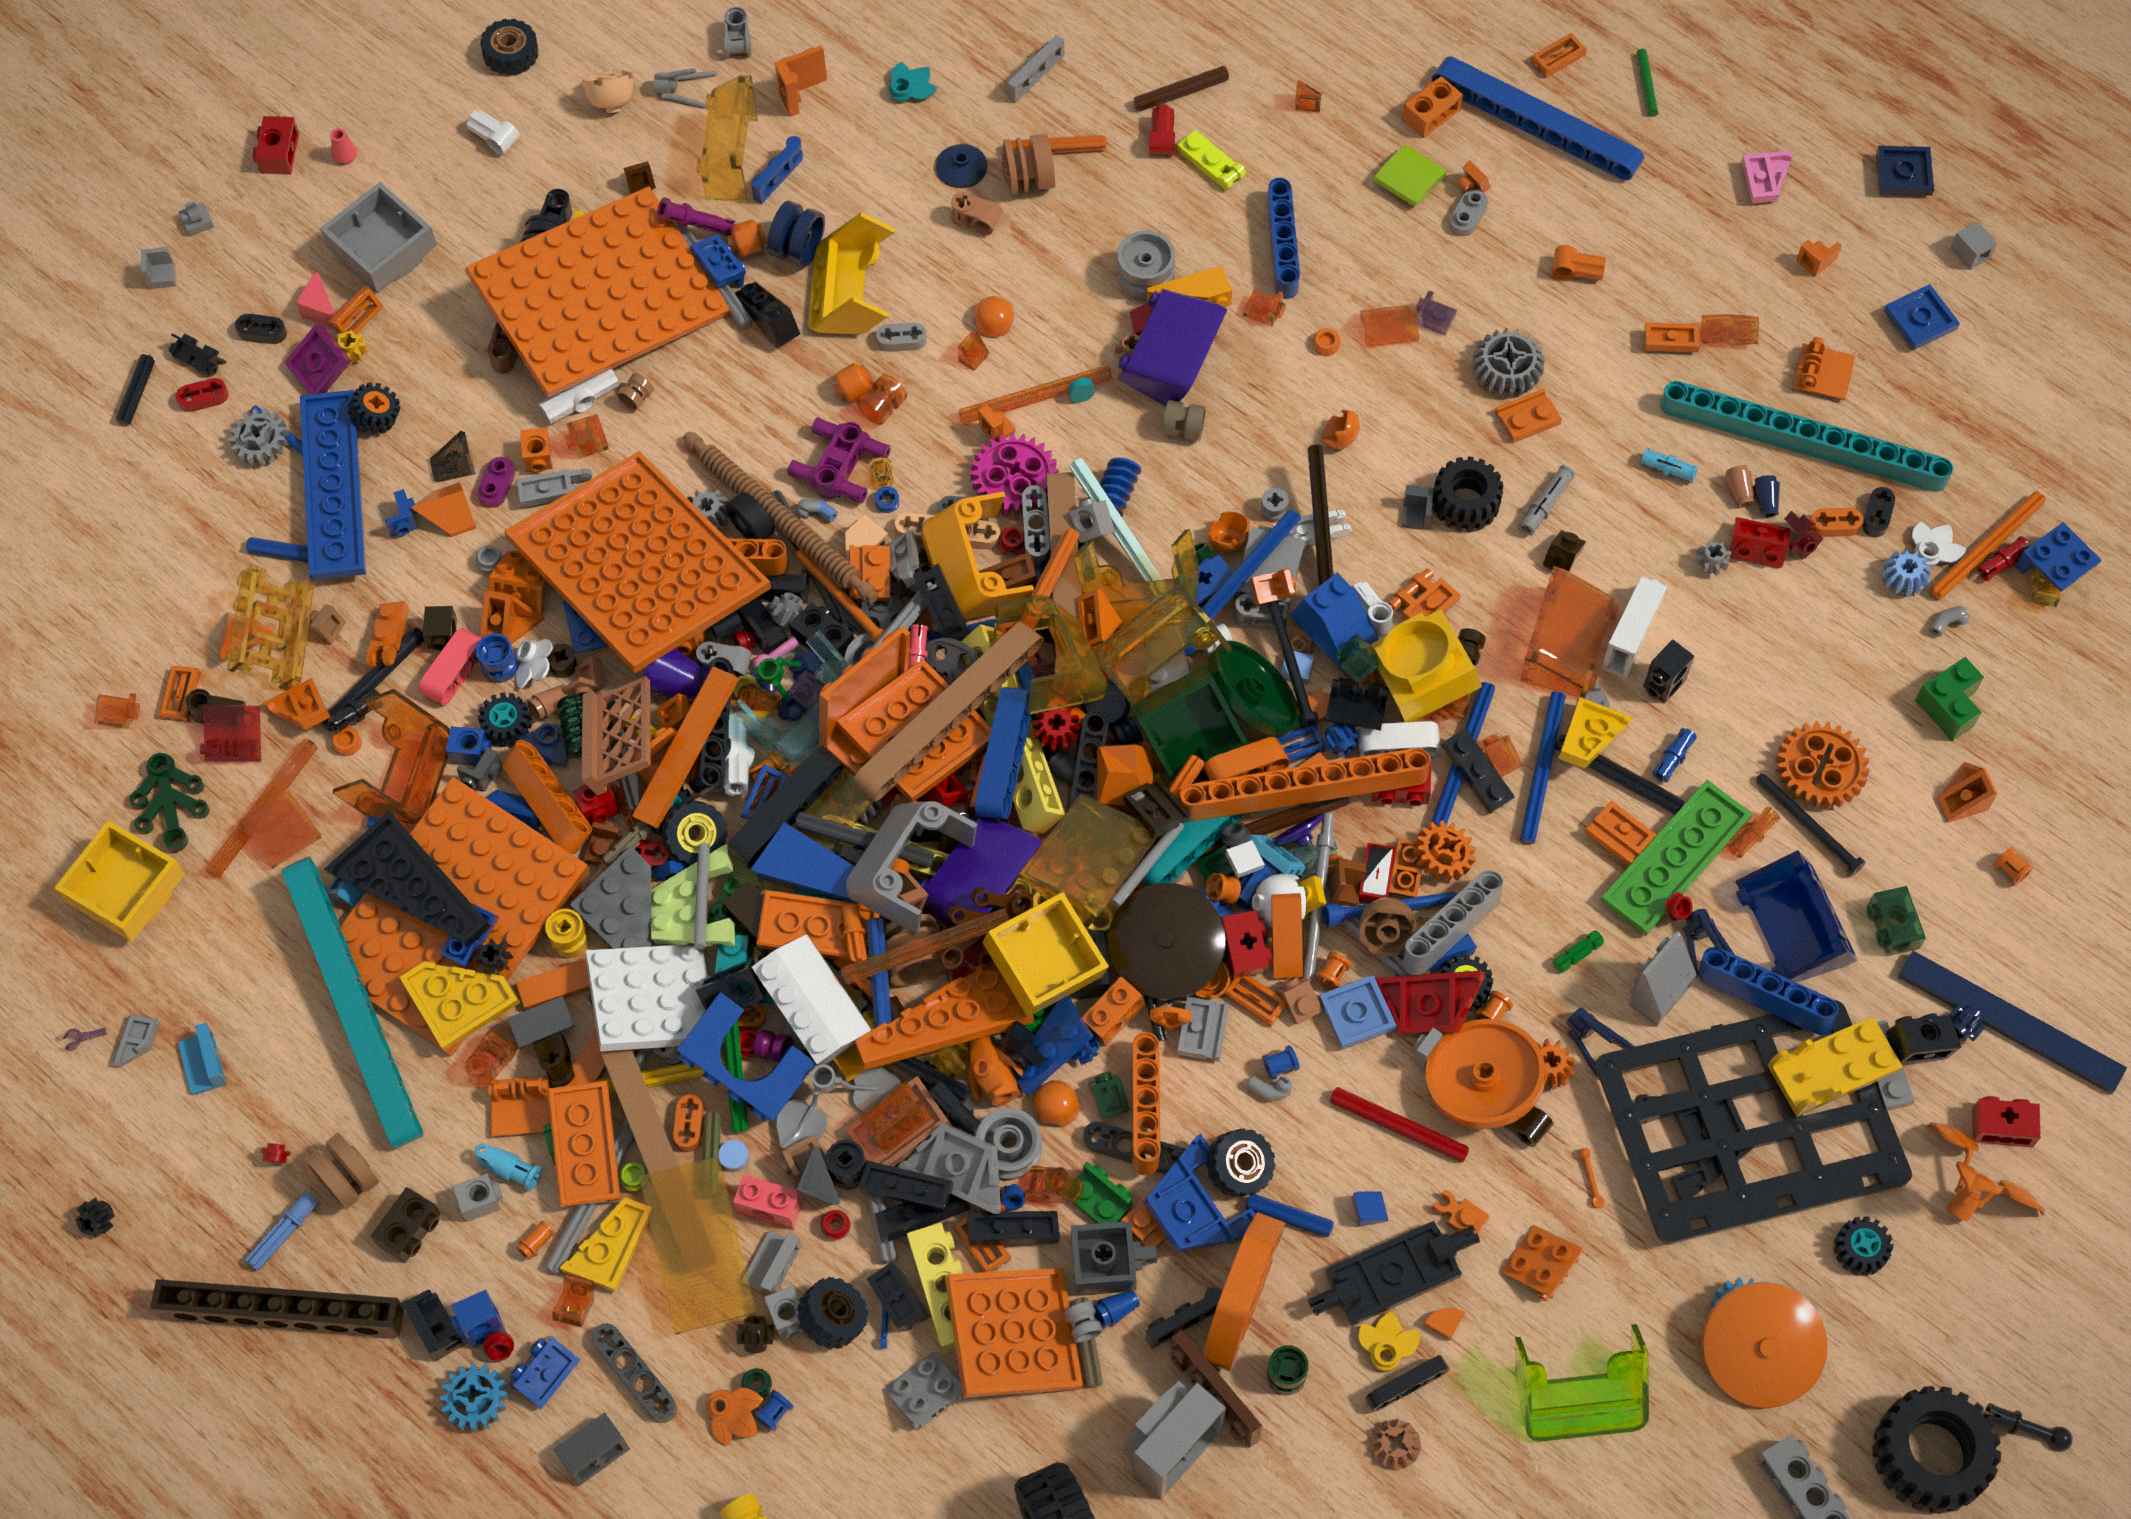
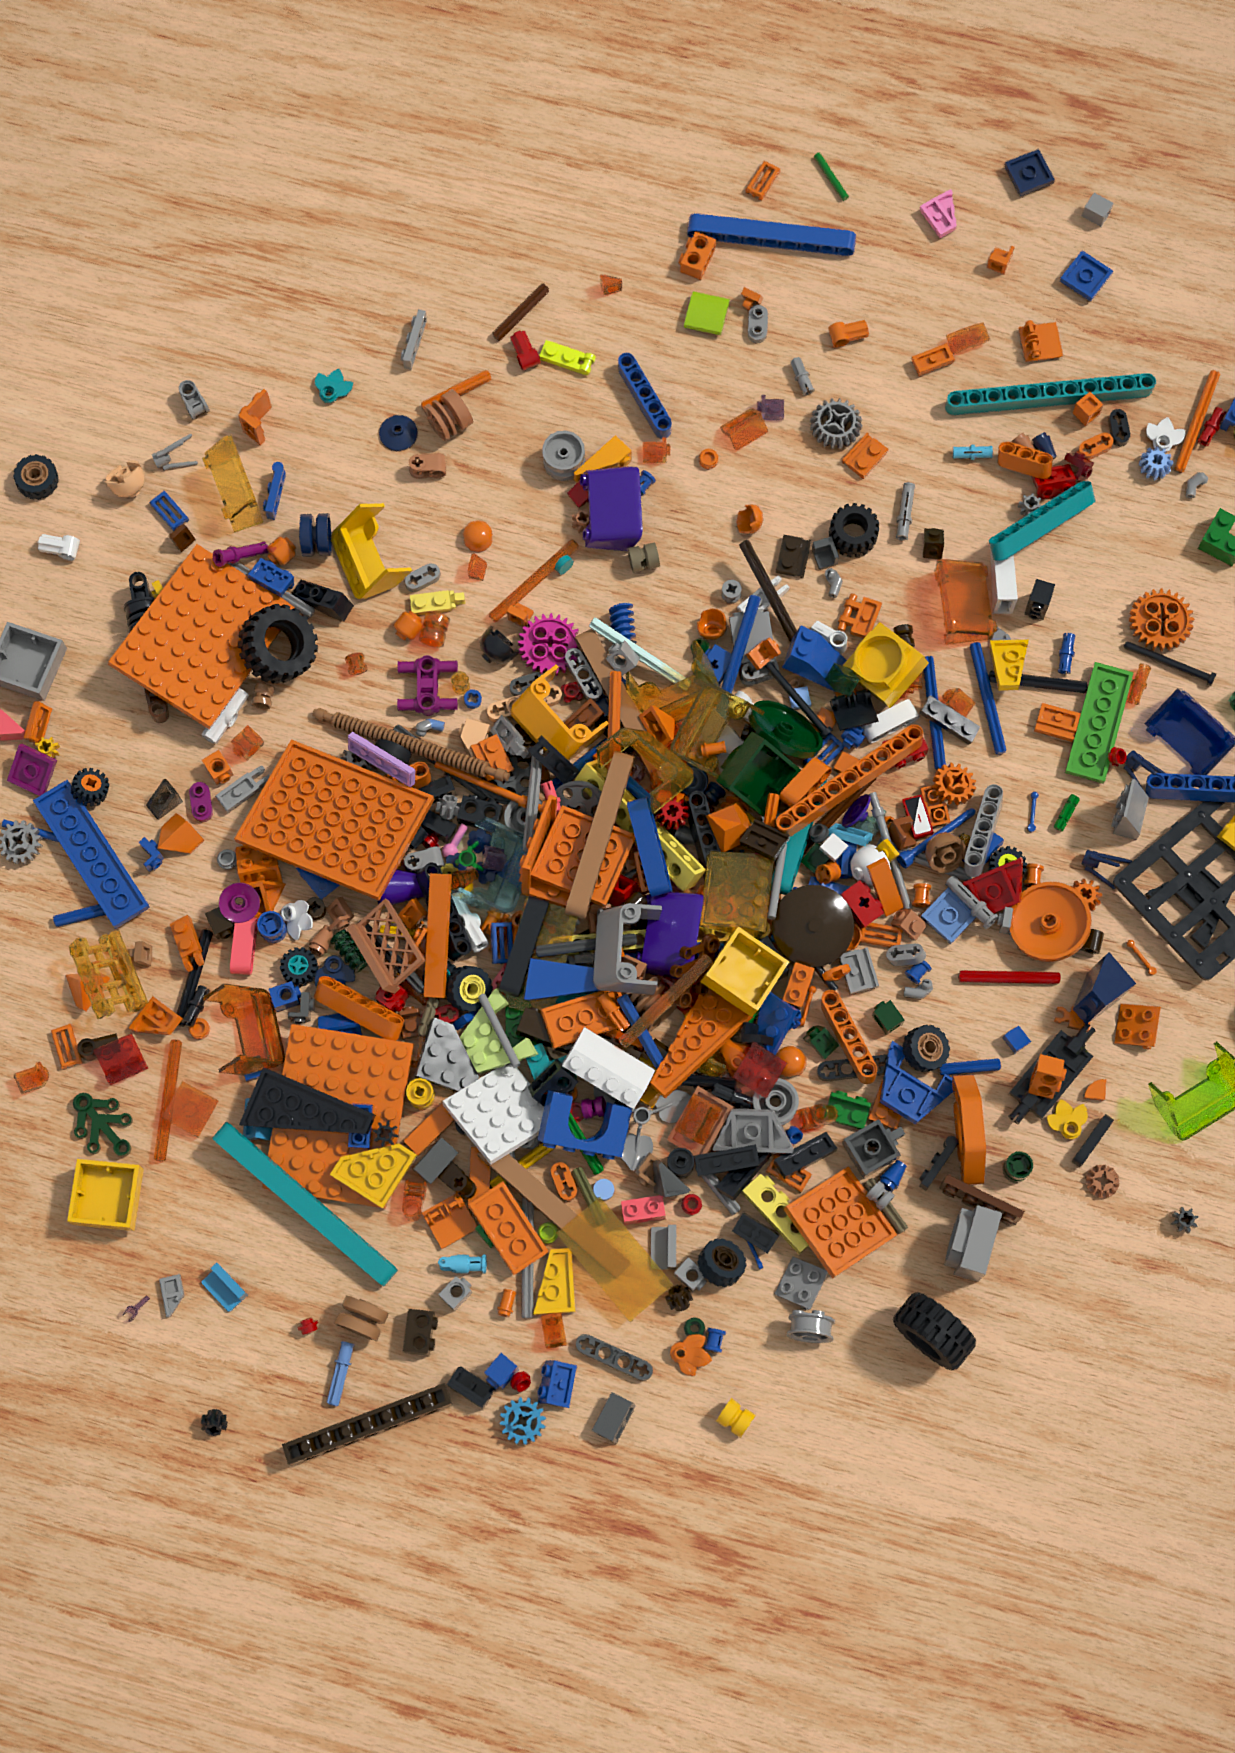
camera: 25 degrees left, 10 degrees up
(457, 609) = (239, 912): none -> magenta dish
(638, 125) = (178, 522): none -> blue tile
(707, 315) = (296, 629): none -> black tyre
(730, 514) = (381, 759): none -> lavender tile
(766, 400) = (356, 663): none -> clear orange wheel
(904, 1449) = (810, 1327): none -> light grey wheel
(907, 372) = (436, 602): none -> light yellow hinge
(946, 449) = (496, 647): none -> black cylinder
(1004, 1088) = (759, 1069): none -> clear red hinge
(1131, 1027) = (812, 990): none -> orange hinge
(1148, 672) = (713, 748): none -> orange pin
(1211, 1103) = (887, 1016): none -> dark green brick
(1230, 336) = (648, 478): none -> blue bush
(1274, 1034) = (906, 954): none -> light grey beam
(1375, 496) = (793, 556): none -> dark brown plate
(1380, 1265) = (1047, 1076): none -> orange brick
(1397, 1016) = (977, 908): none -> light grey pin
(1414, 547) = (834, 580): none -> light grey arm
(1493, 292) = (801, 375): none -> light grey axle
(1514, 1192) = (1102, 988): none -> dark blue slope
(1522, 950) = (1031, 827): none -> blue hinge
(1717, 576) = (1042, 520): none -> teal beam
(1732, 498) = (1024, 460): none -> orange beam
(1845, 470) = (1087, 408): none -> orange brick

